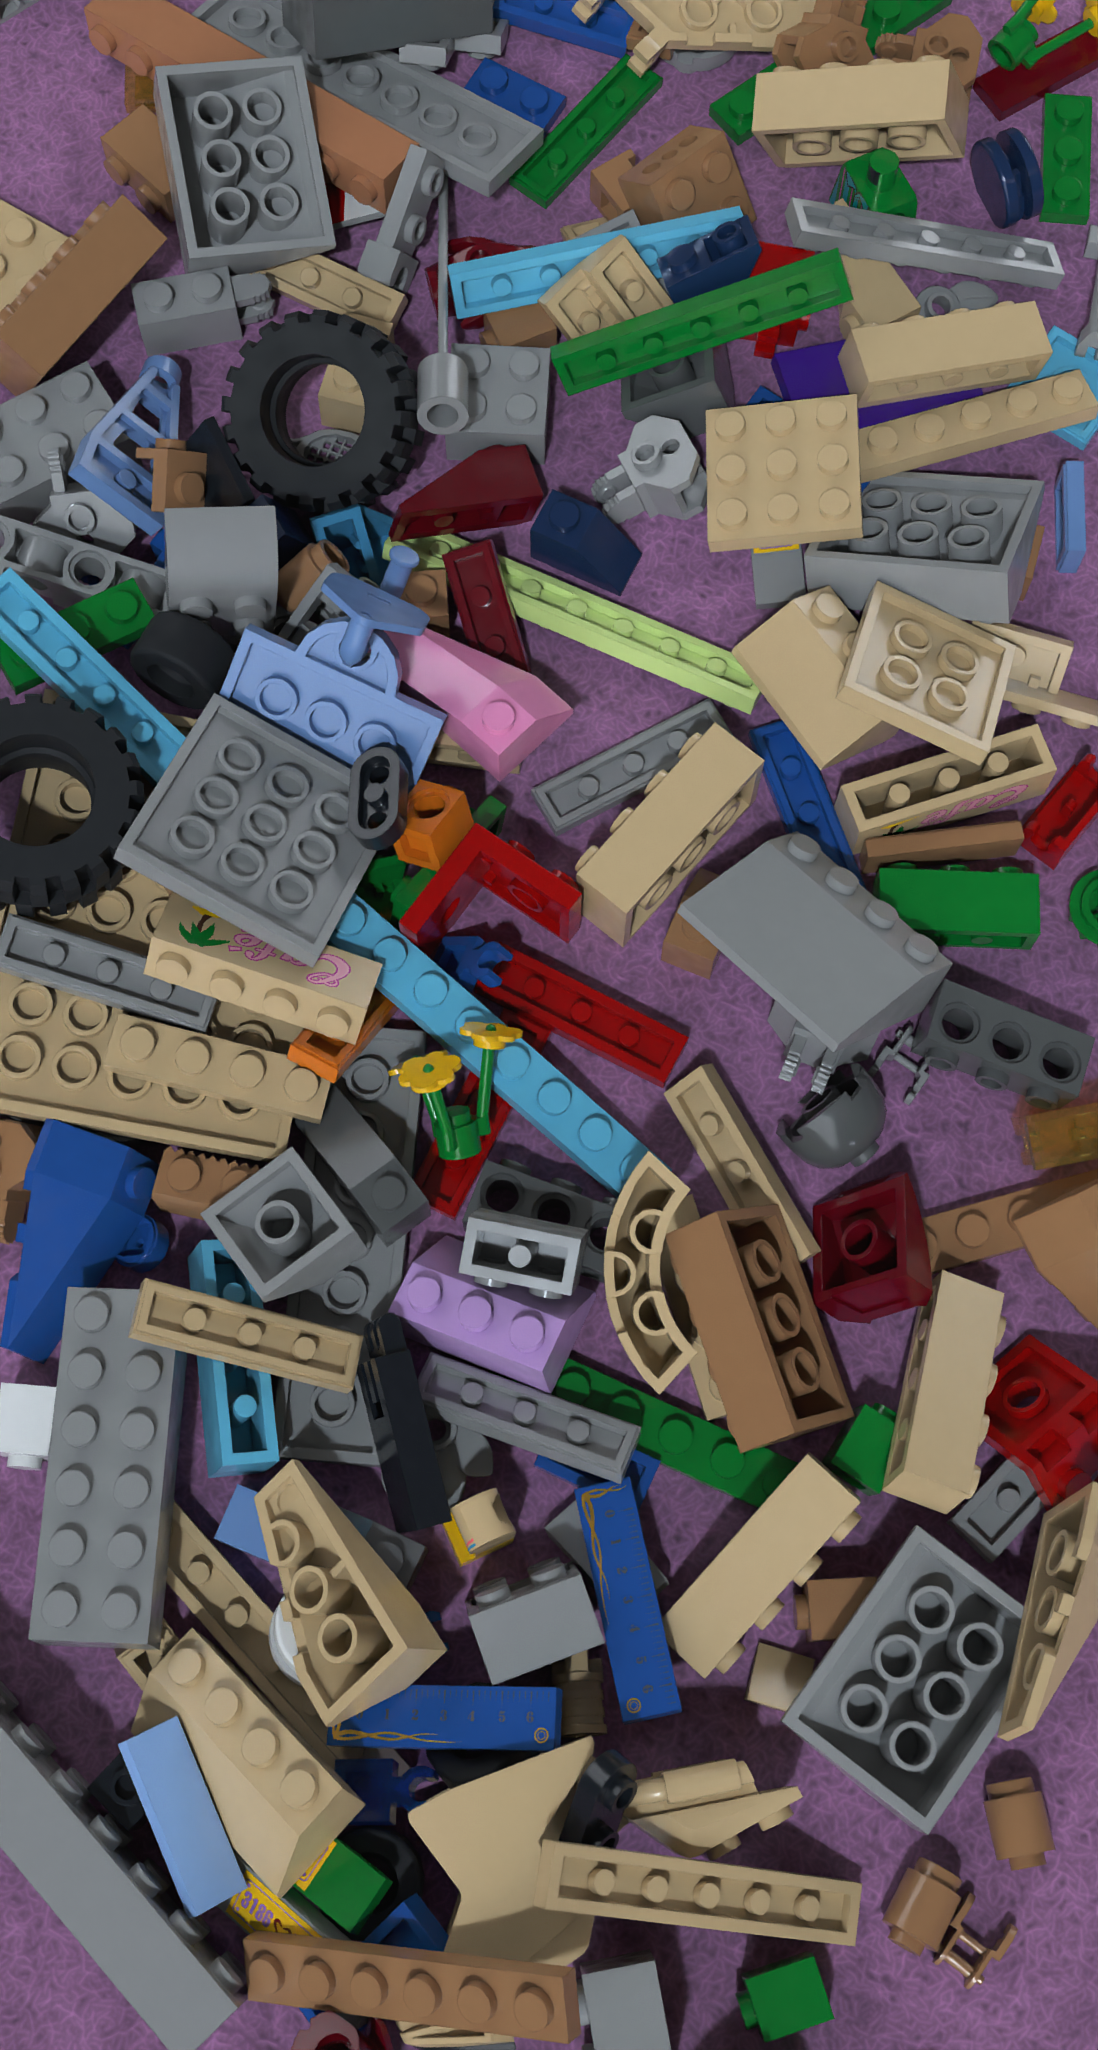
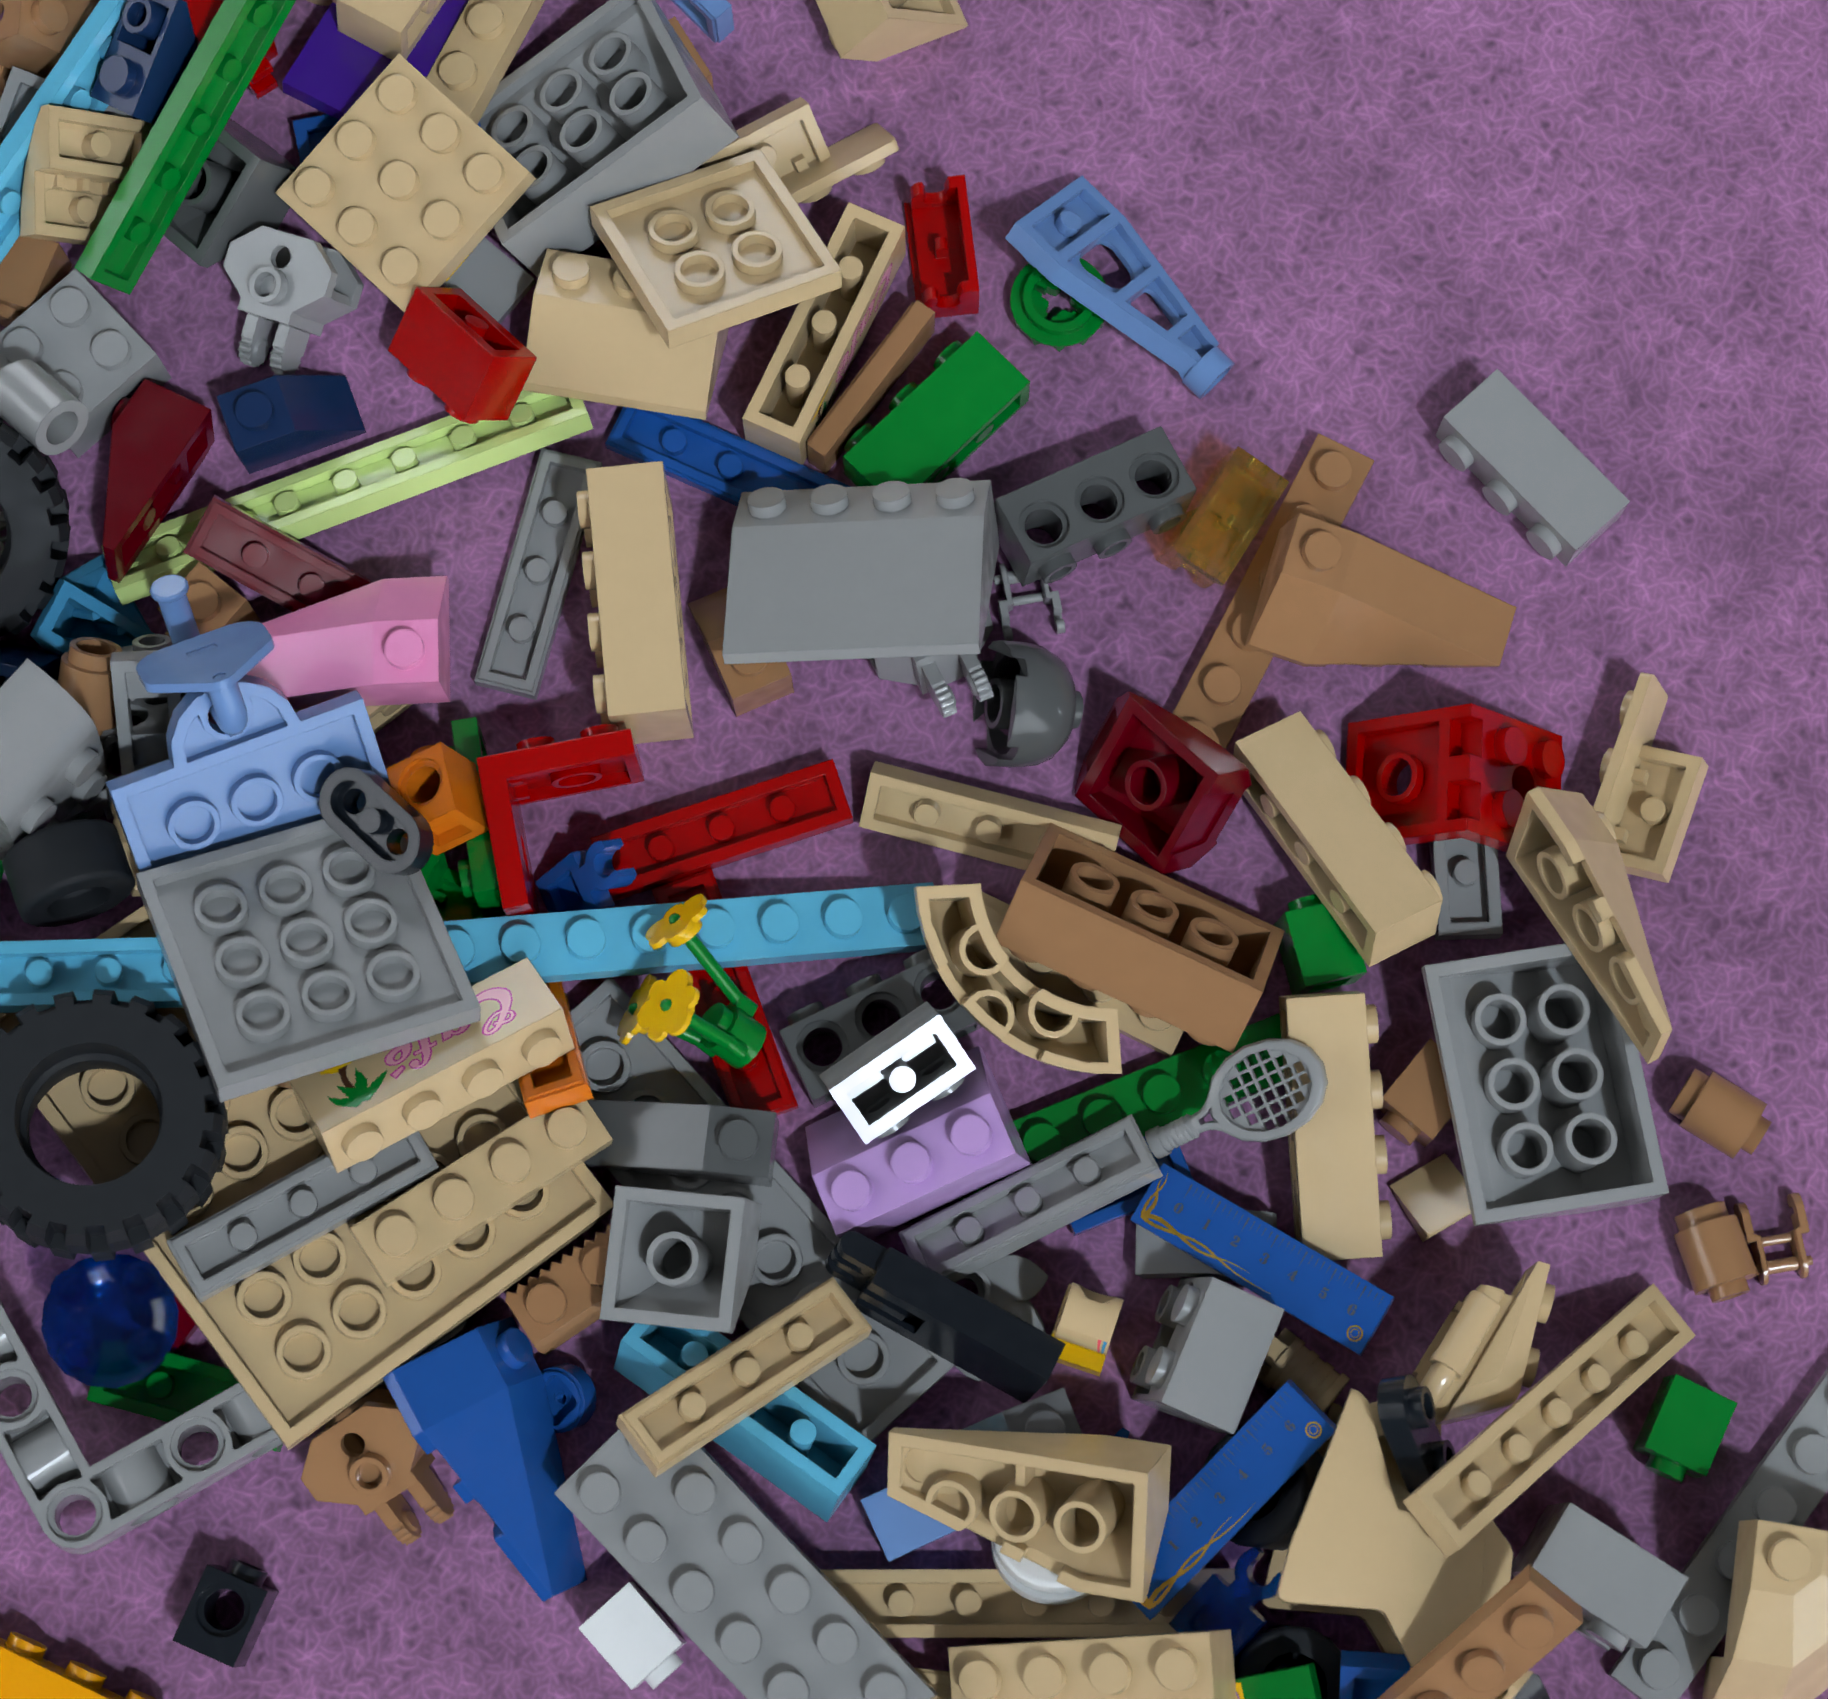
camera: 45 degrees left, 5 degrees up
(647, 1464) = (1187, 1128): none -> light grey piece
(716, 597) = (461, 354): none -> red brick

